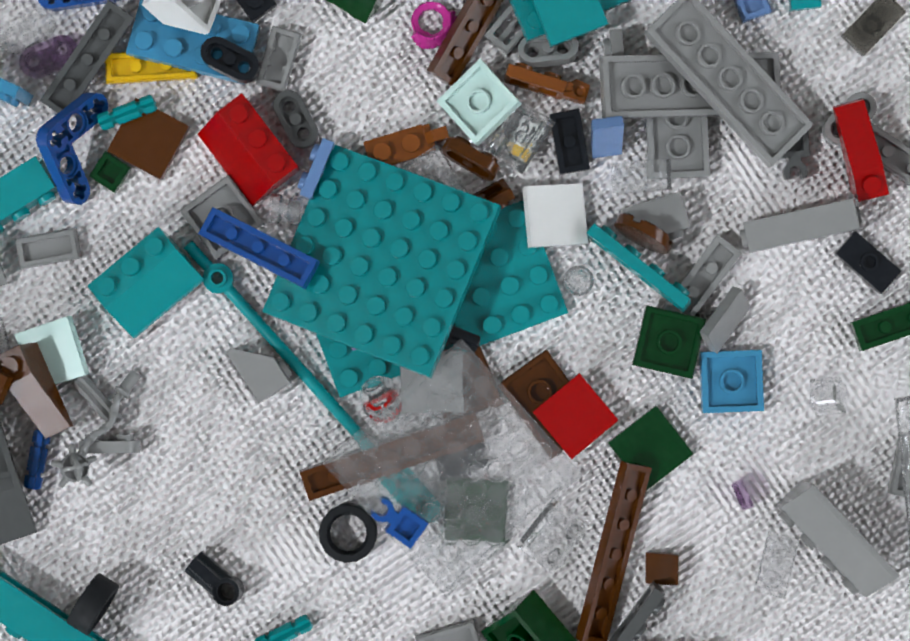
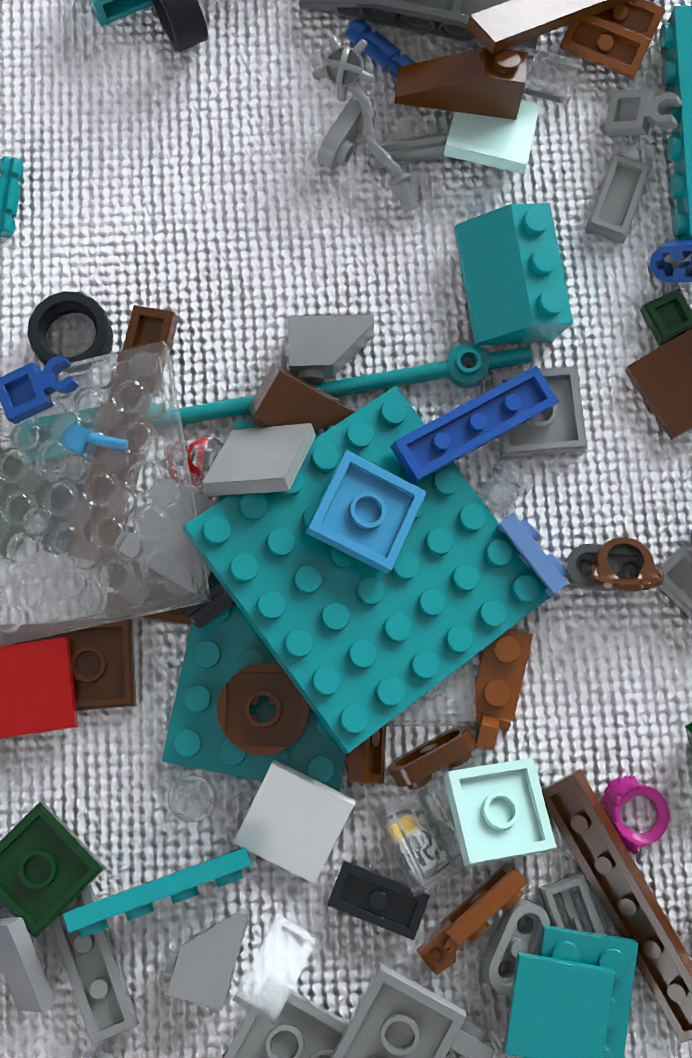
camera: 120 degrees right, 10 degrees down
(212, 577) = (119, 155): black piece -> none
(248, 150) = (605, 490): red slope -> none
(292, 92) = (602, 574): none -> reddish brown piece
(311, 364) = (292, 401): none -> reddish brown slope
(355, 277) = (366, 512): none -> dark azure plate
(361, 360) = (259, 460): none -> light grey tile
(414, 475) = (77, 439): none -> dark azure hand
(521, 274) = (244, 728): none -> reddish brown plate
(606, 136) = (354, 955): medium blue tile -> none
(643, 234) = (196, 924): reddish brown tile -> none

